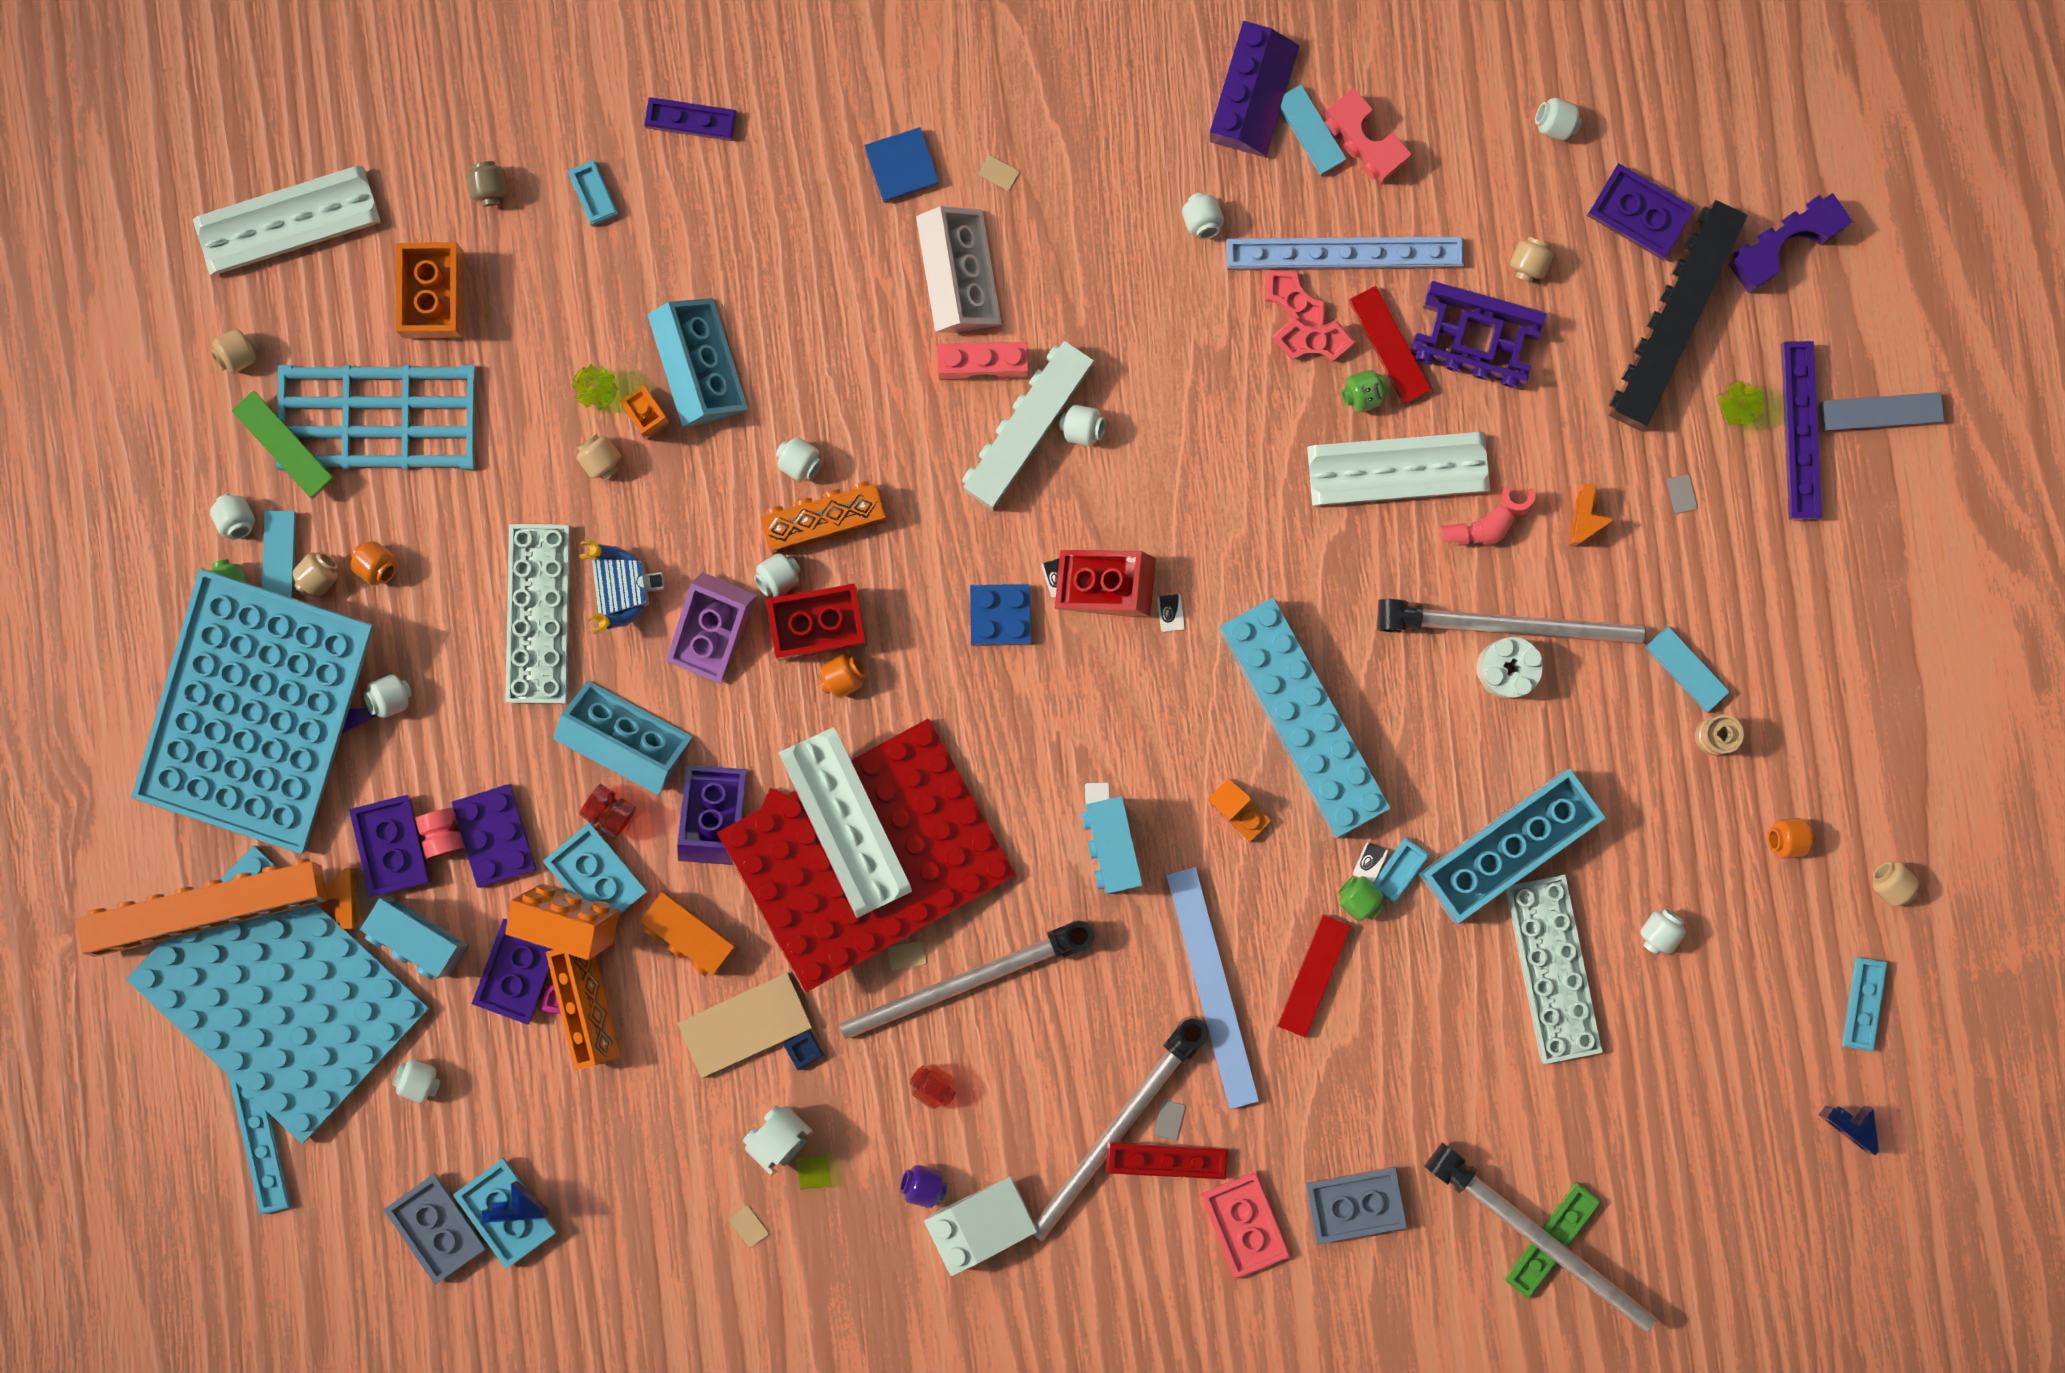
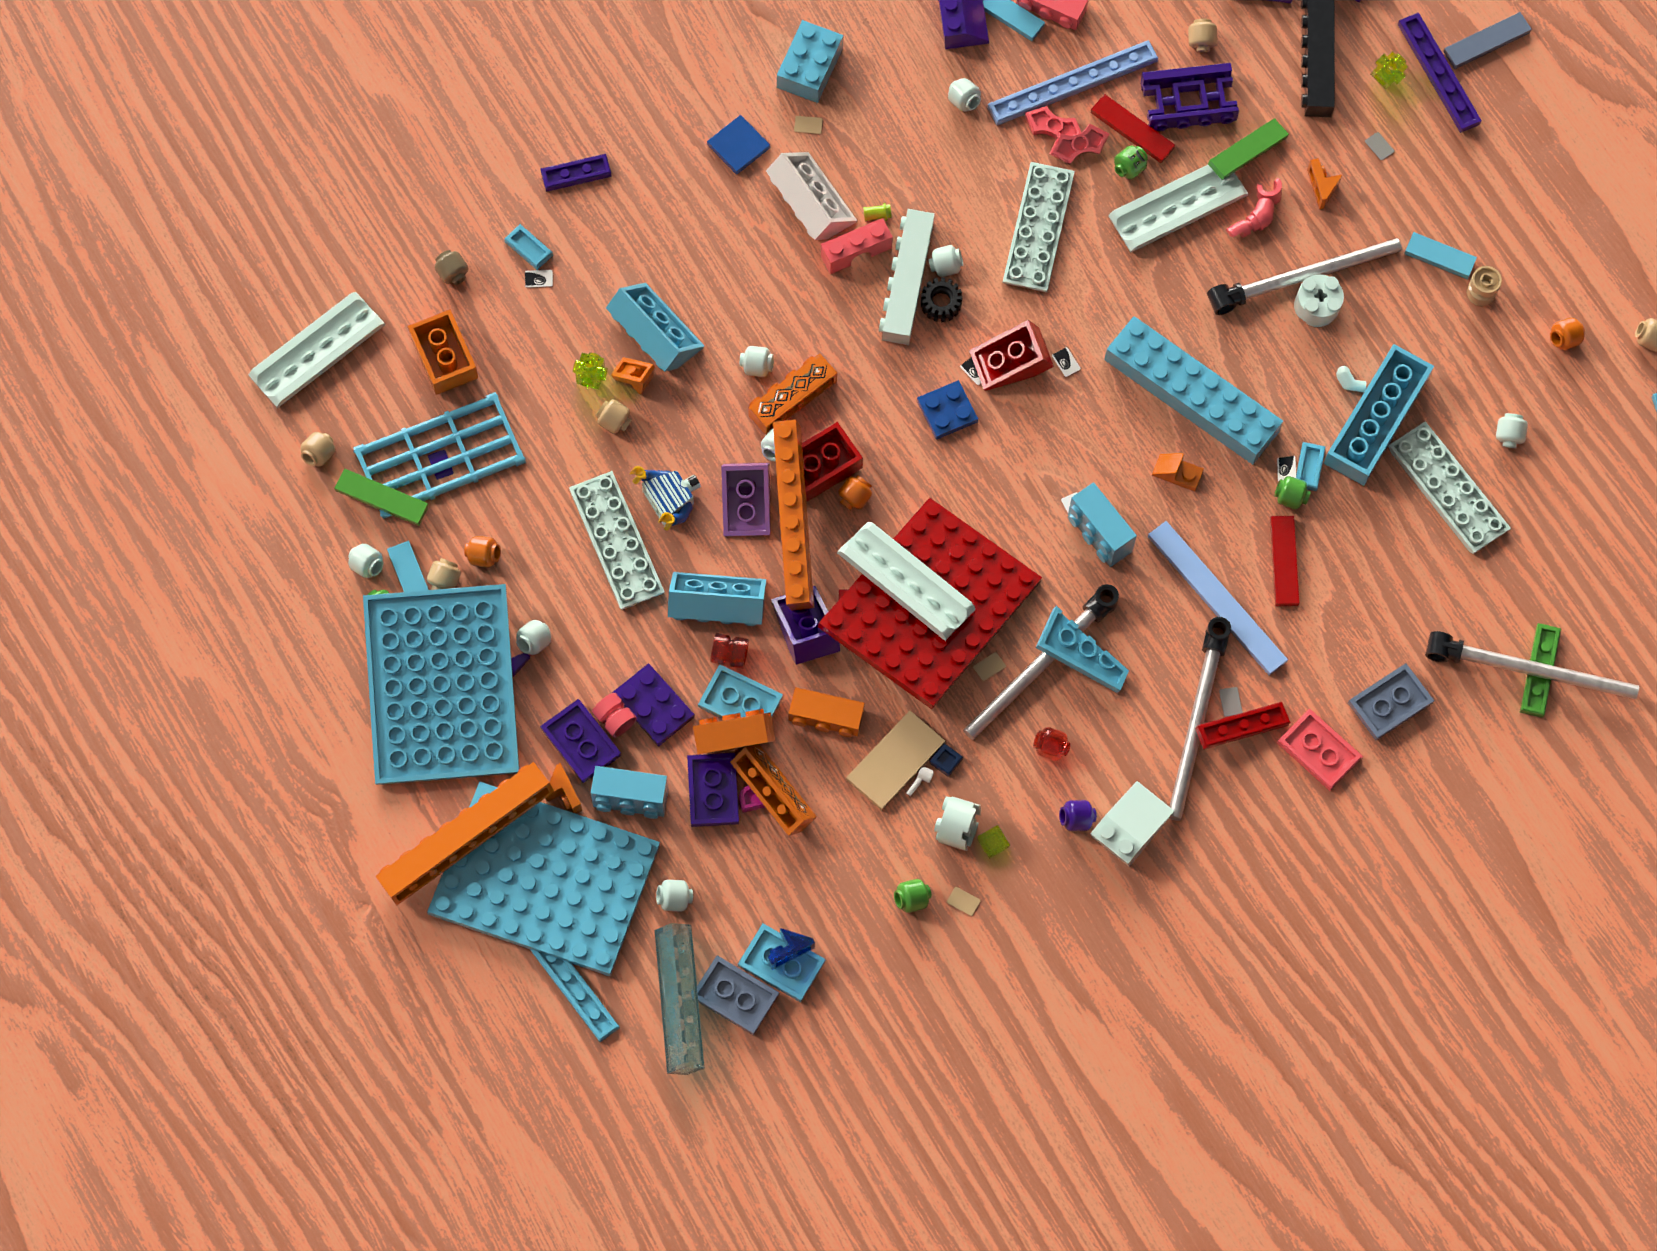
camera: 20 degrees left, 15 degrees down
(366, 1210) = (679, 999): none -> clear light blue brick
(374, 418) = (437, 457): none -> dark purple sticker
(589, 238) = (539, 278): none -> sticker
(689, 1199) = (912, 895): none -> bright green head
(747, 683) = (793, 515): none -> orange brick
(770, 1058) = (924, 774): none -> white hand
(1010, 984) = (1072, 647): none -> medium azure wing
(1029, 325) = (877, 212): none -> lime pin
(1034, 92) = (810, 61): none -> medium azure brick
(1059, 454) = (941, 287): none -> black tyre
(1215, 426) = (1038, 227): none -> light aqua plate
(1496, 783) = (1347, 380): none -> light aqua arm
(1516, 434) = (1248, 149): none -> bright green tile

